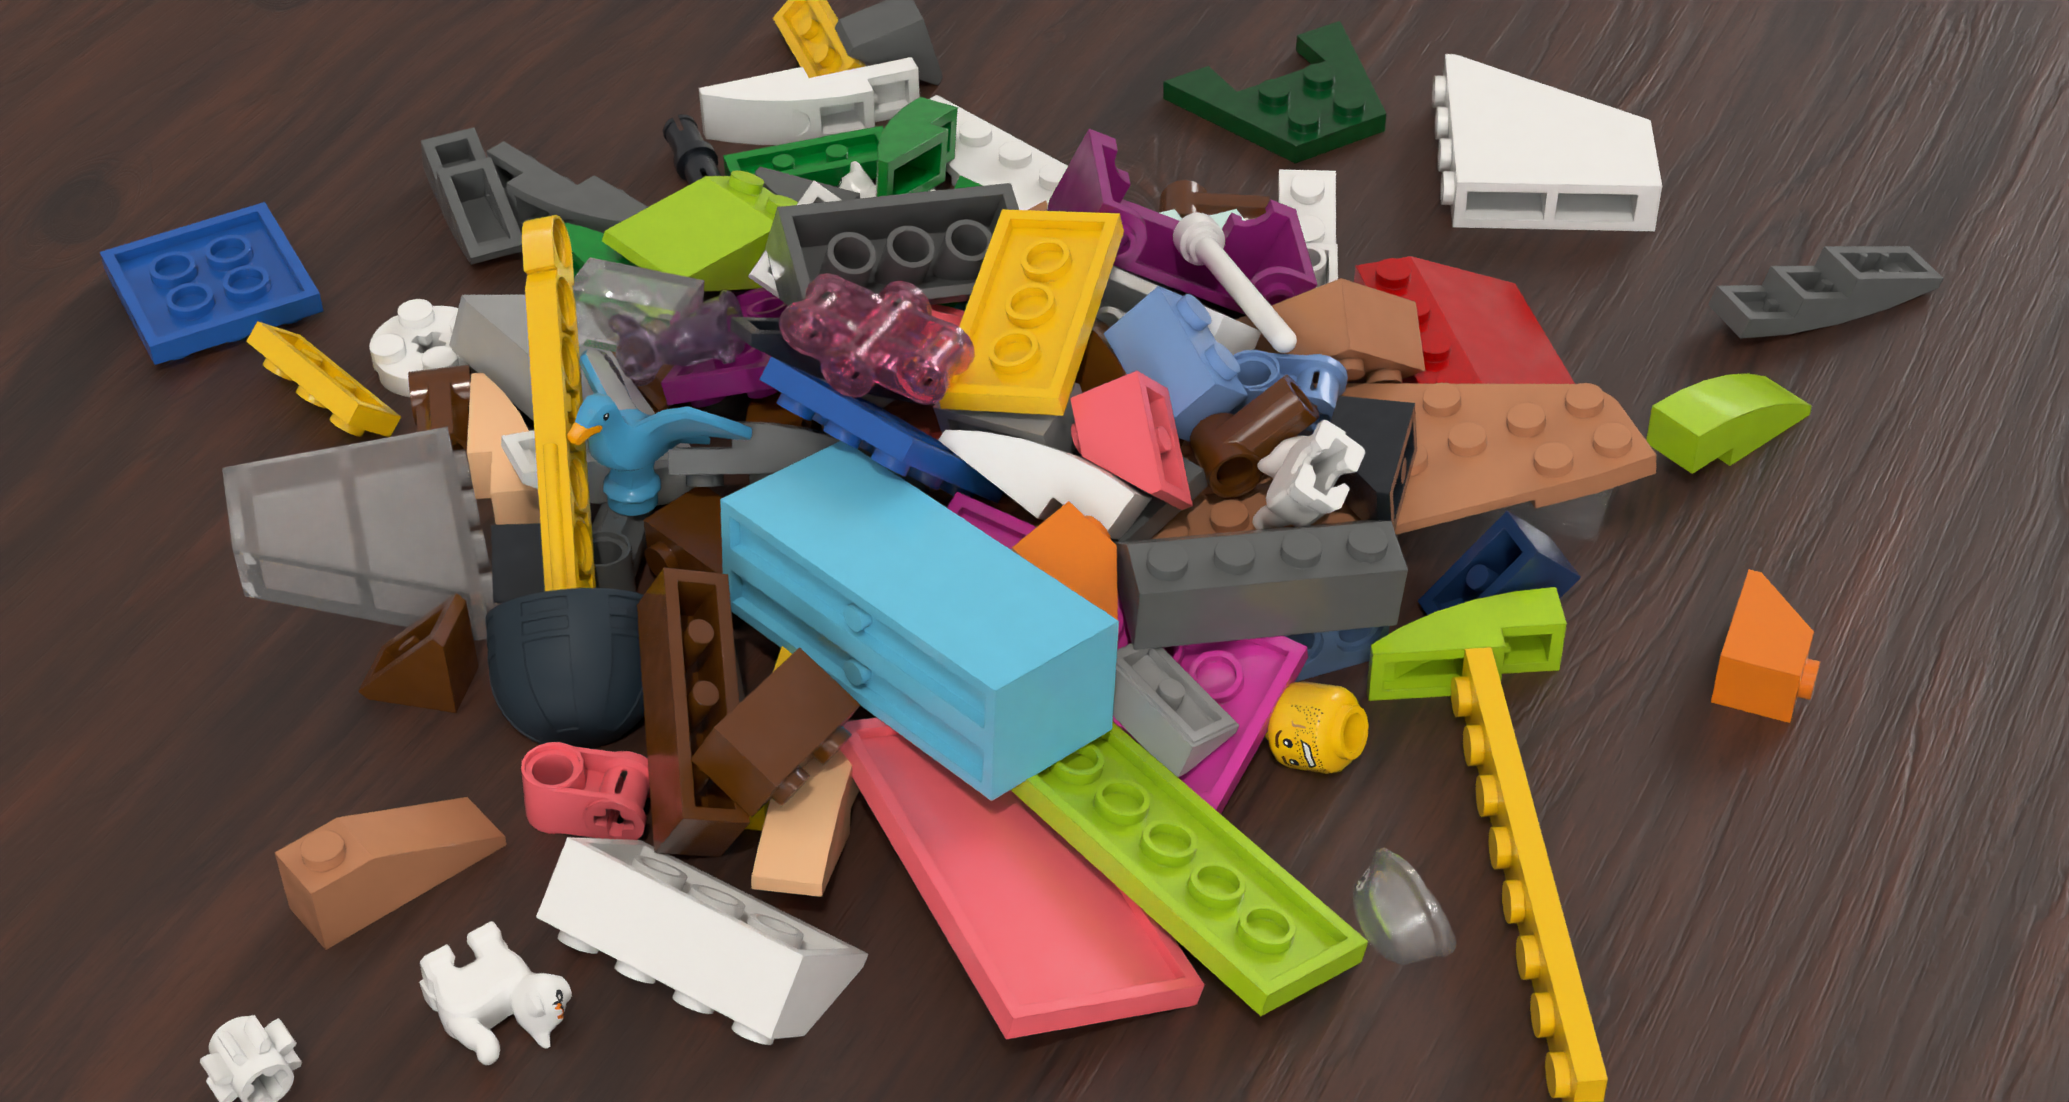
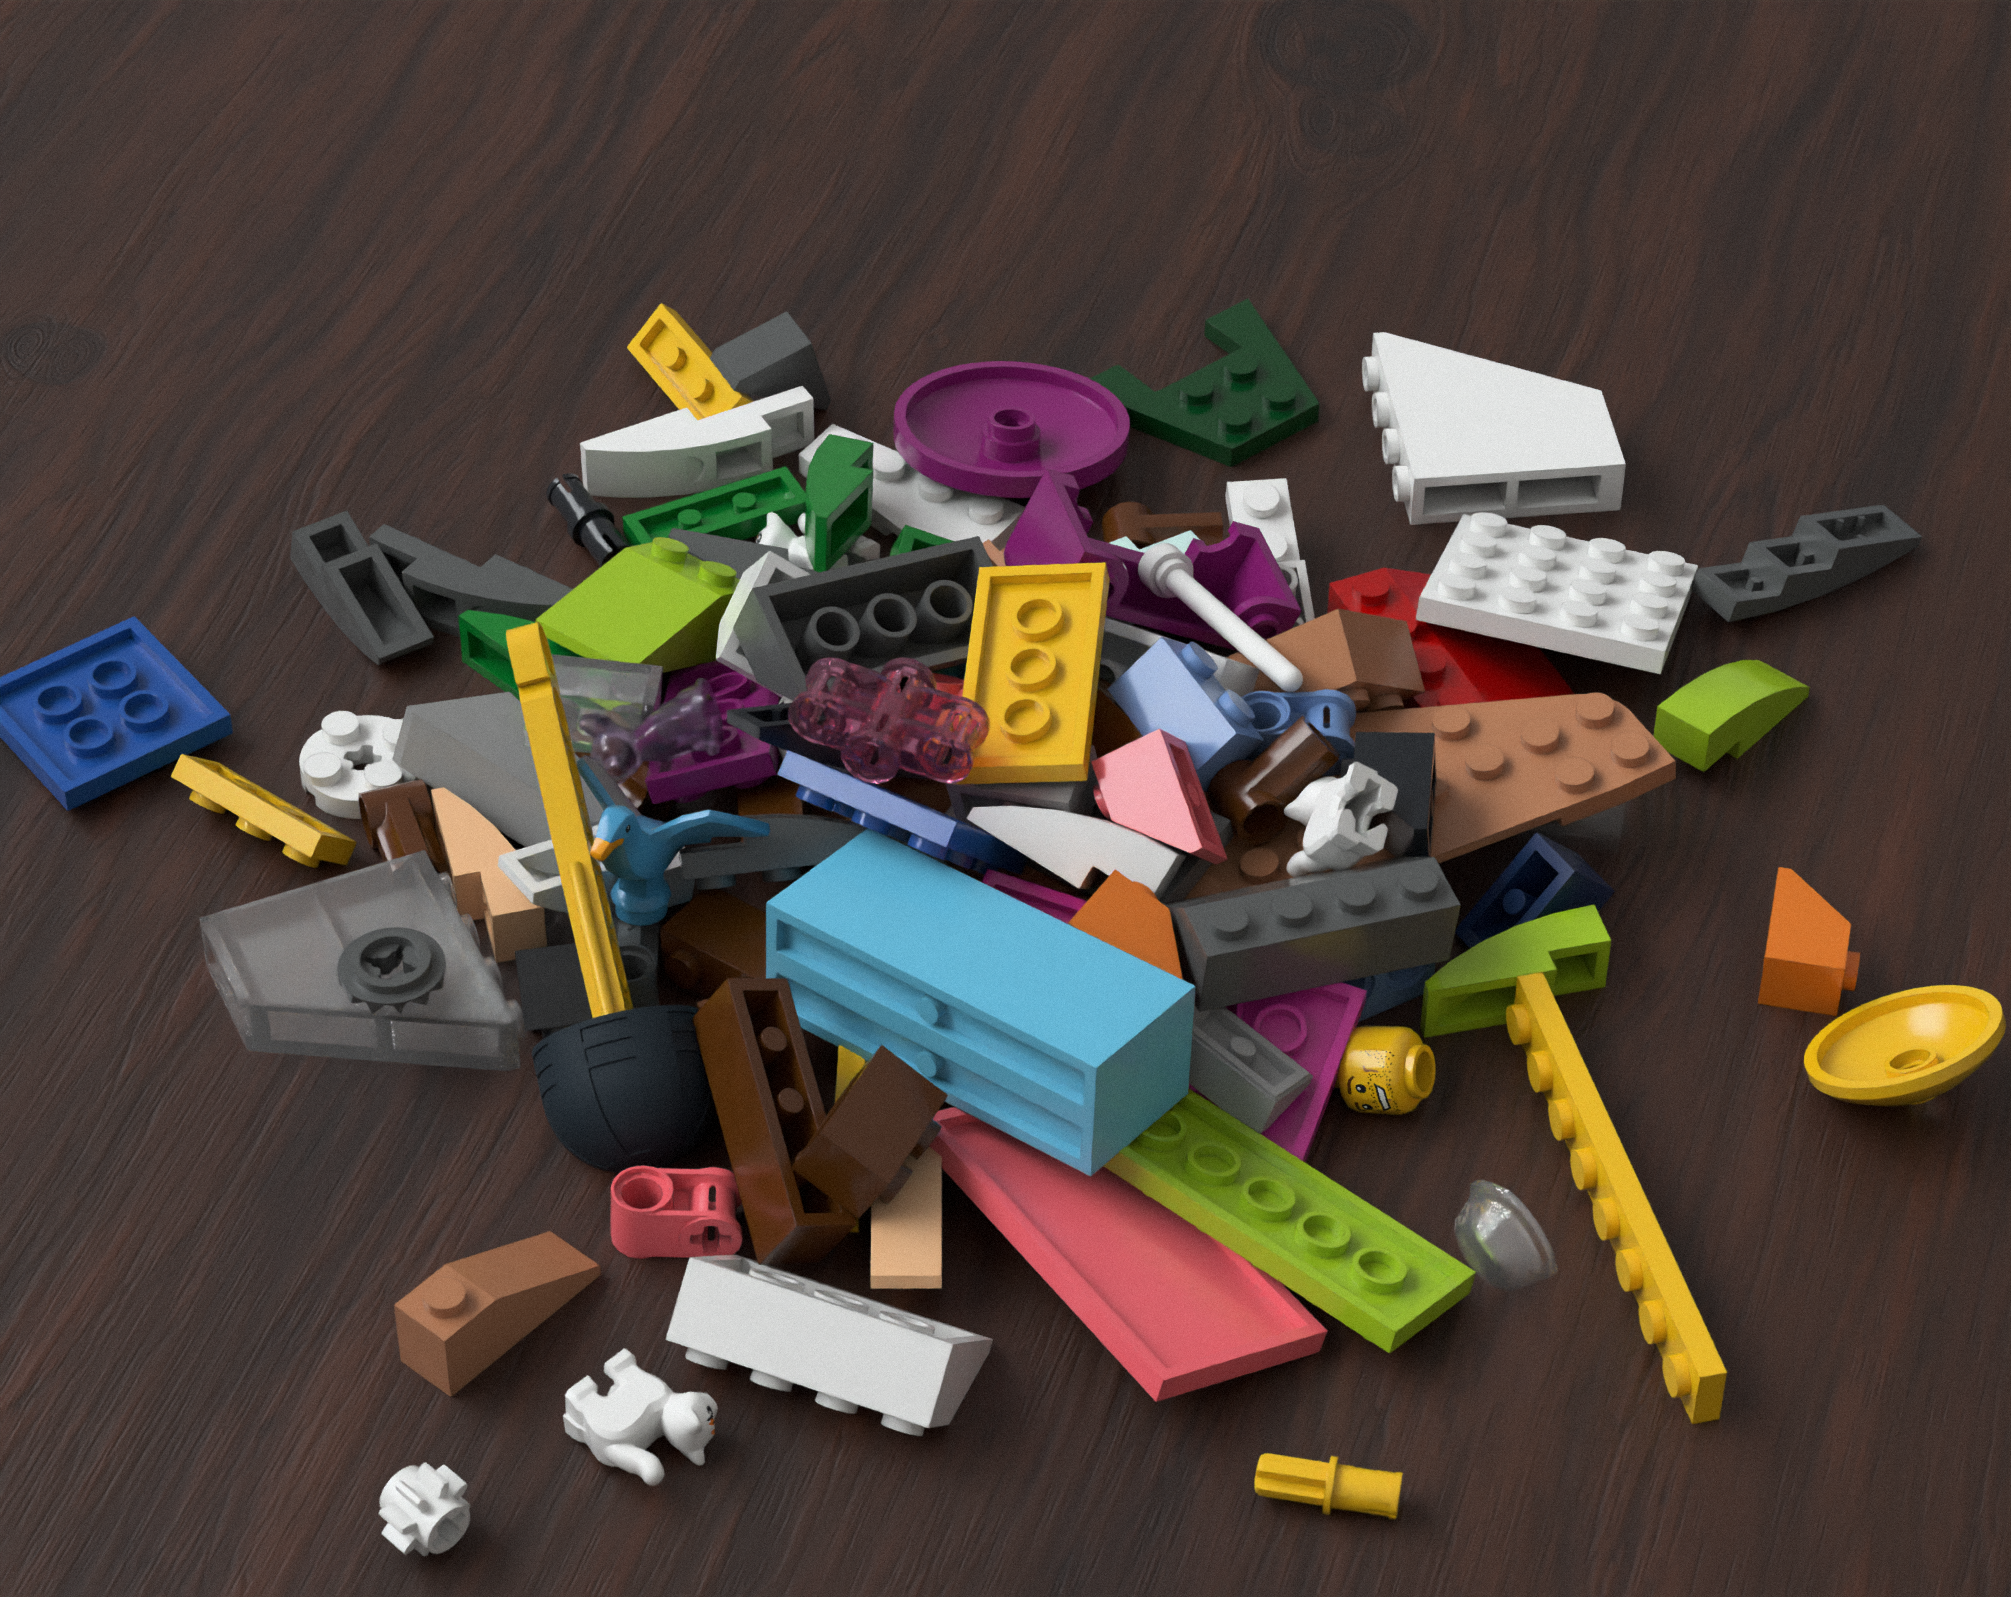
camera: 10 degrees left, 0 degrees up
(371, 515) = (379, 954): none -> dark grey gear
(427, 662) = (468, 1098): reddish brown slope -> none
(1054, 98) = (1007, 421): none -> magenta dish
(1577, 294) = (1559, 592): none -> white plate
(1853, 759) = (1906, 1045): none -> yellow dish

